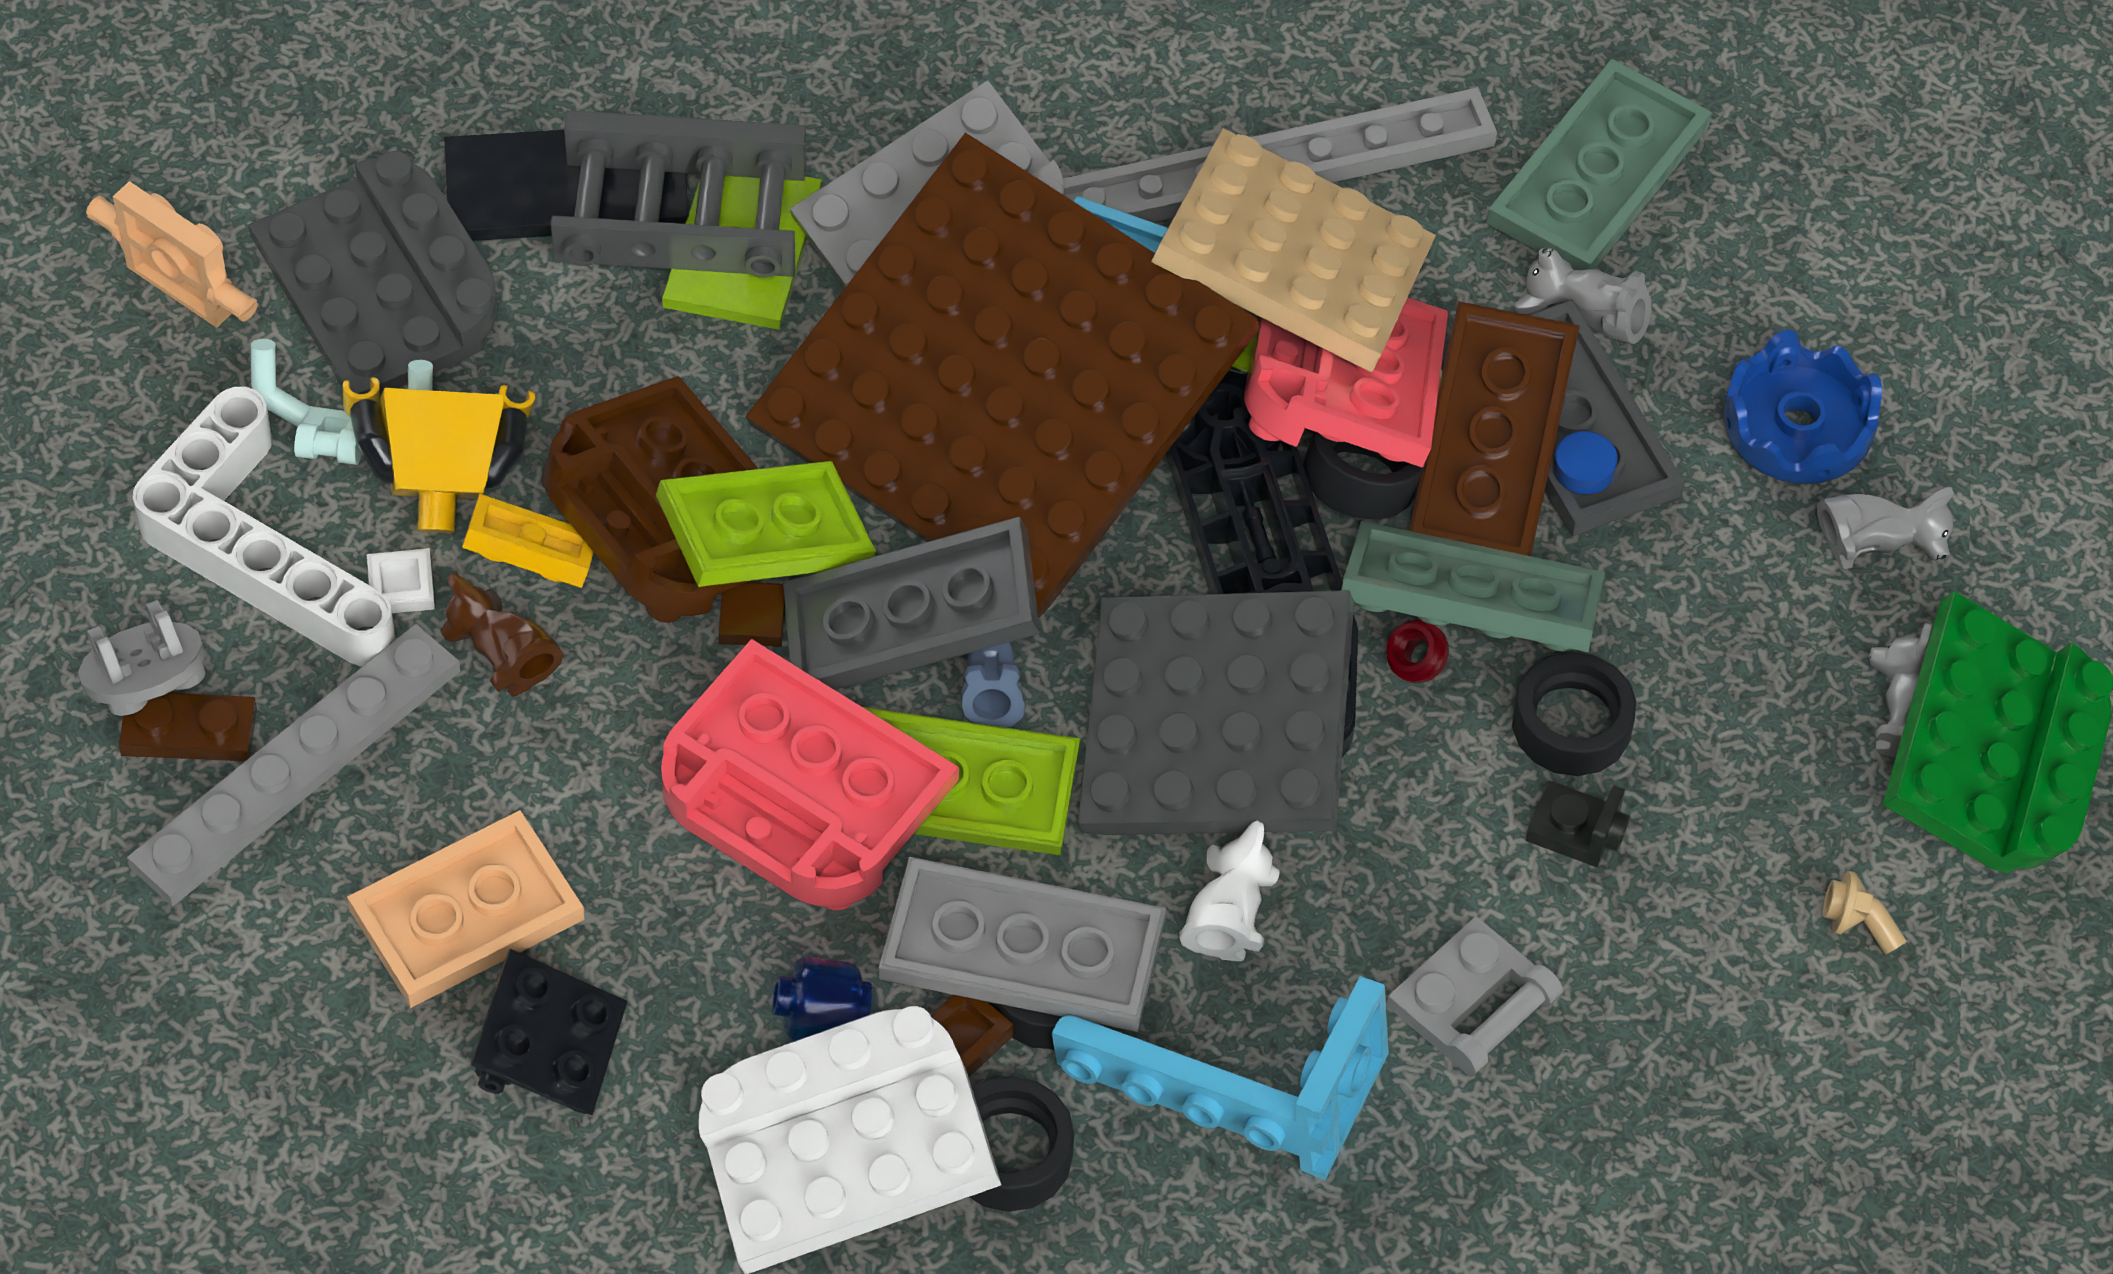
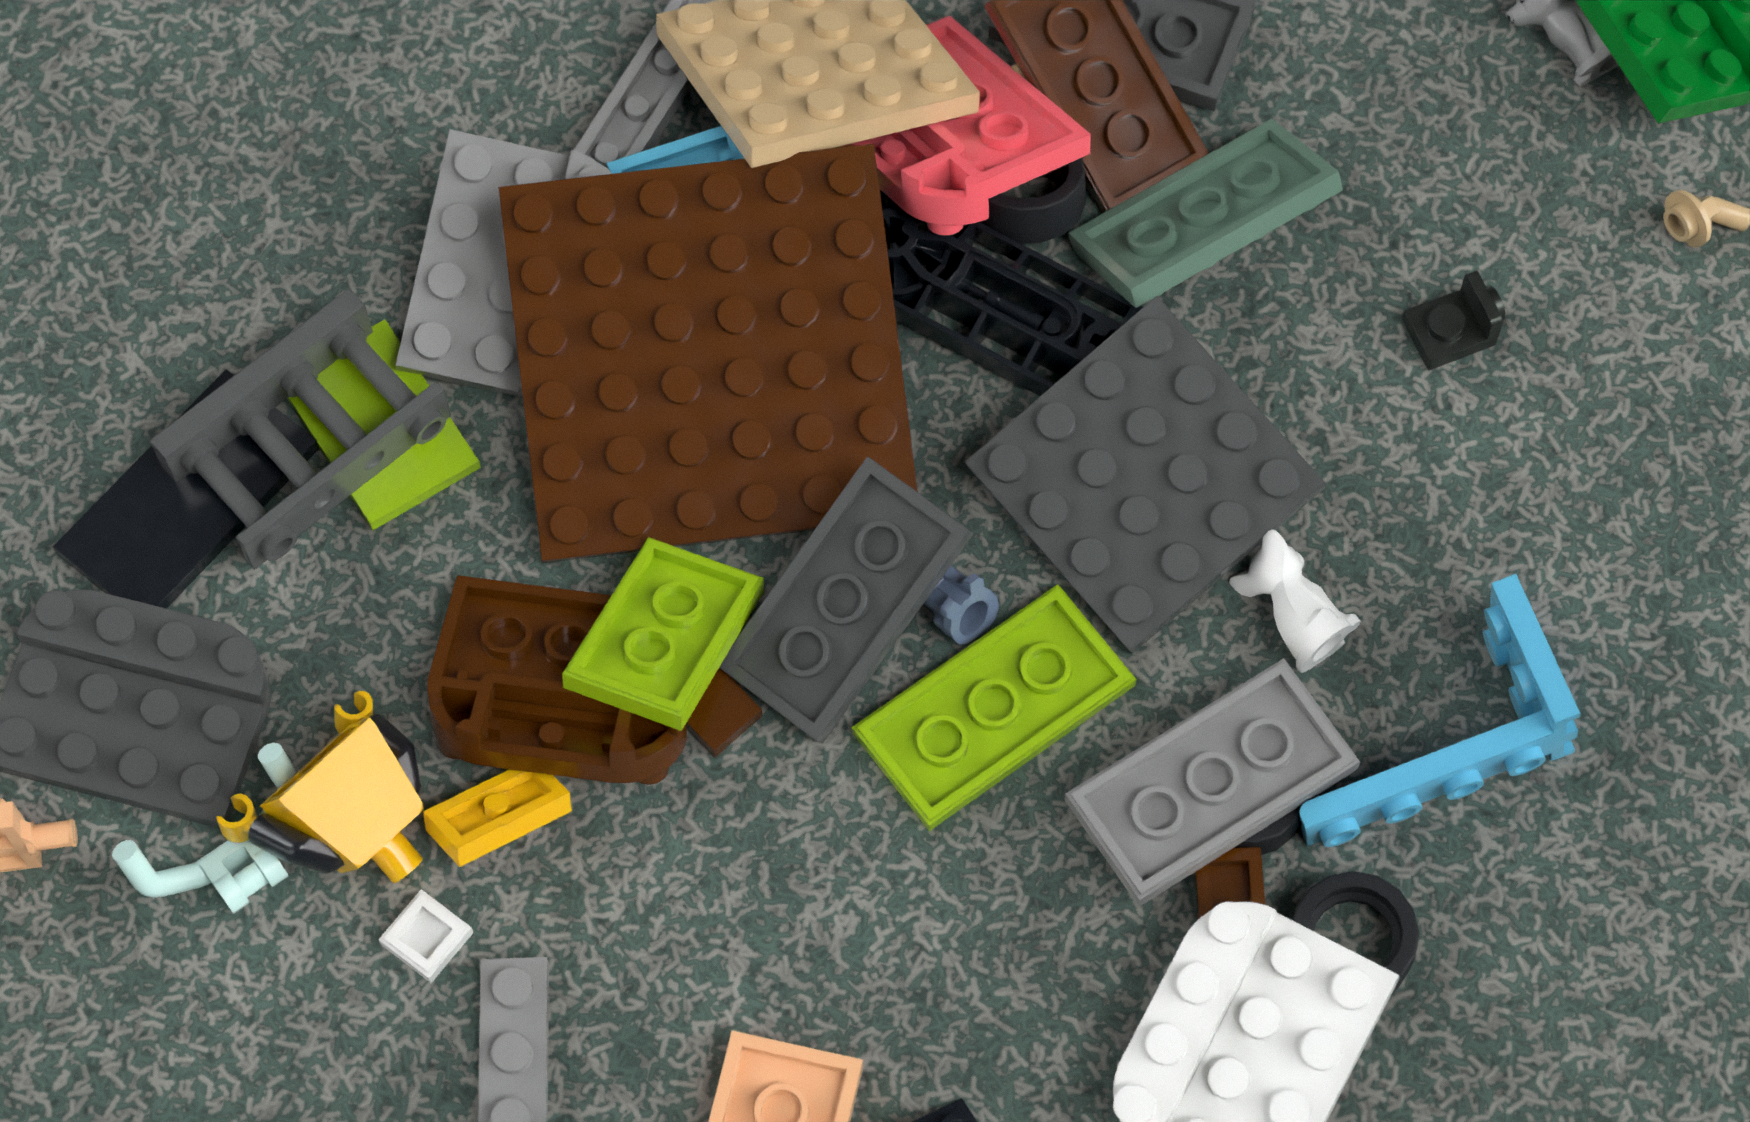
camera: 40 degrees left, 10 degrees up
(246, 545) = (280, 1017): white beam -> none
(512, 643) = (575, 905): reddish brown animal -> none
(798, 780) = (906, 809): coral plate -> none
(820, 996) = (1111, 961): clear blue head -> none
(1403, 642) = (1219, 316): dark red plate -> none
(1459, 981) = (1504, 519): light grey plate -> none
(1570, 754) = (1360, 286): black tyre -> none
(1585, 462) = (1181, 46): blue tile -> none

